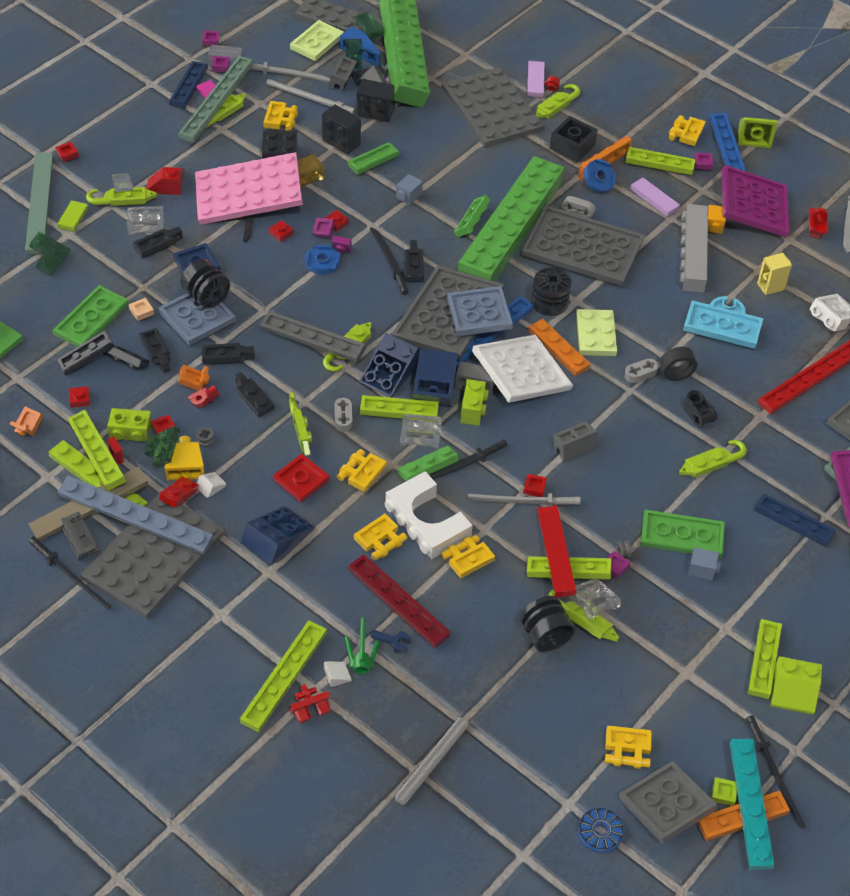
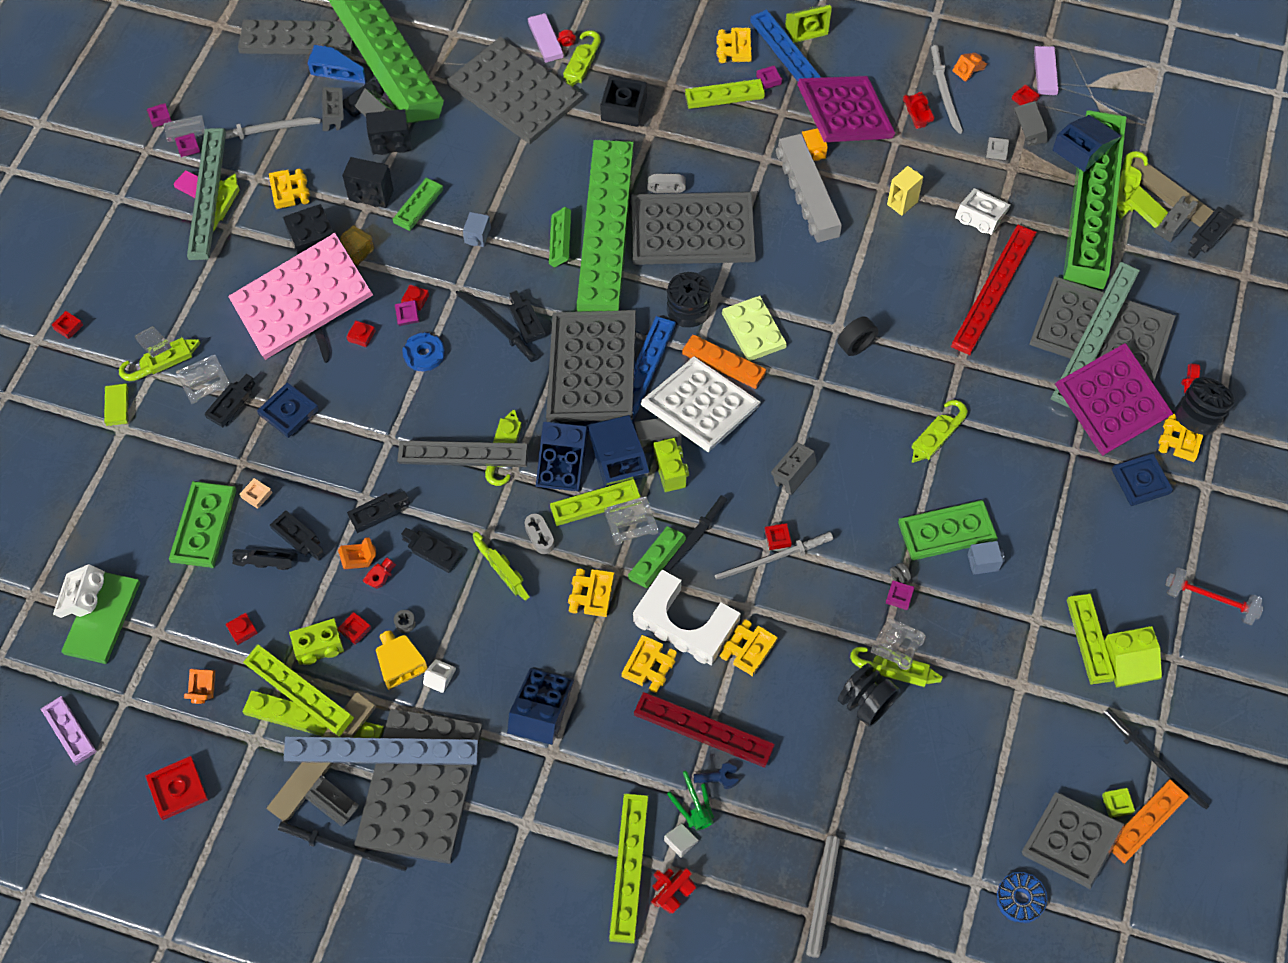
camera: 20 degrees left, 10 degrees up
(39, 198) = (69, 403): sand green tile -> none
(52, 251) = (118, 459): clear green plate -> none
(85, 352) = (222, 573): black tile -> none
(115, 450) = (317, 679): red tile -> none
(162, 446) = (368, 652): clear green plate -> none
(167, 181) = (201, 319): red slope -> none
(178, 492) = (411, 701): red plate -> none
(188, 84) = (162, 185): dark blue tile -> none
(193, 320) = (321, 475): sand blue plate -> none
(205, 283) = (317, 438): black wheel -> none
(301, 478) = (532, 628): red plate -> none
(307, 95) = (346, 151): light grey bar -> none
(316, 40) = (281, 75): yellowish green plate -> none
(342, 244) = (437, 327): magenta plate -> none
(353, 50) = (334, 76): clear green plate -> none
(369, 25) = (333, 36): clear green plate -> none
(479, 311) = (628, 355): sand blue plate -> none
(556, 551) = (838, 607): red tile -> none
(581, 567) = (857, 619): lime plate -> none
(592, 180) = (663, 140): blue tile -> none
(610, 154) = (666, 111): orange plate -> none
(628, 740) = (1004, 787): yellow plate -> none
(640, 369) = (817, 353): light grey beam -> none
(655, 197) = (738, 139): lavender tile -> none
(699, 408) = (901, 380): black piece -> none
(723, 322) = (877, 266): medium azure plate -> none
(751, 804) = (1152, 807): teal plate -> none
(795, 520) = (1048, 468): dark blue tile -> none

